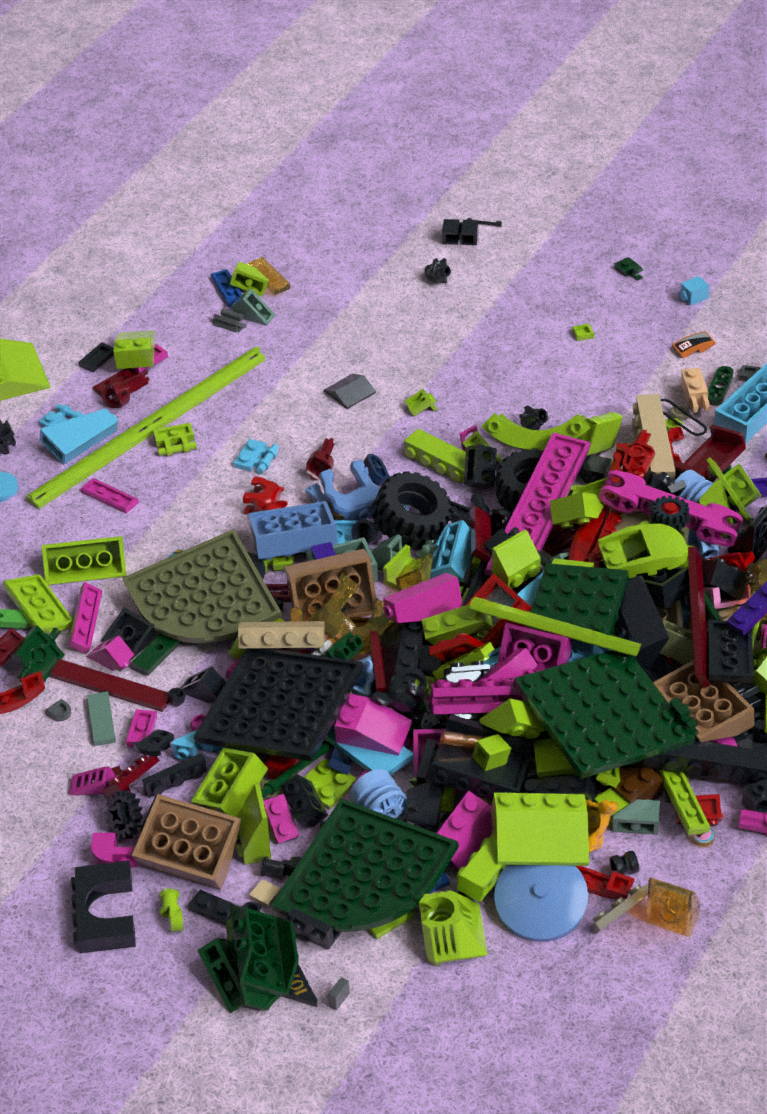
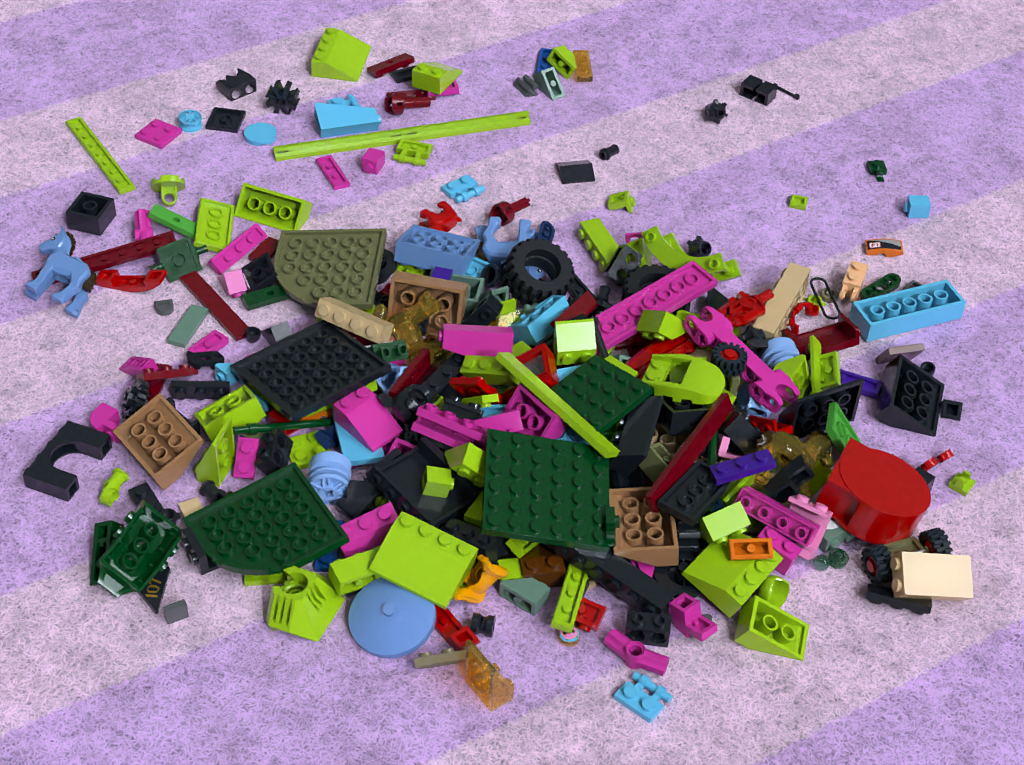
camera: 25 degrees right, 0 degrees up
(72, 355) = (389, 65): none -> dark red tile
(112, 605) = (268, 245): none -> dark red tile
(144, 465) = (373, 161): none -> dark pink brick
(367, 358) = (606, 153): none -> black pin
(391, 573) = (483, 312): none -> black brick
(459, 739) = (417, 459): clear orange piece -> none
(602, 431) = (740, 278): lime piece -> none

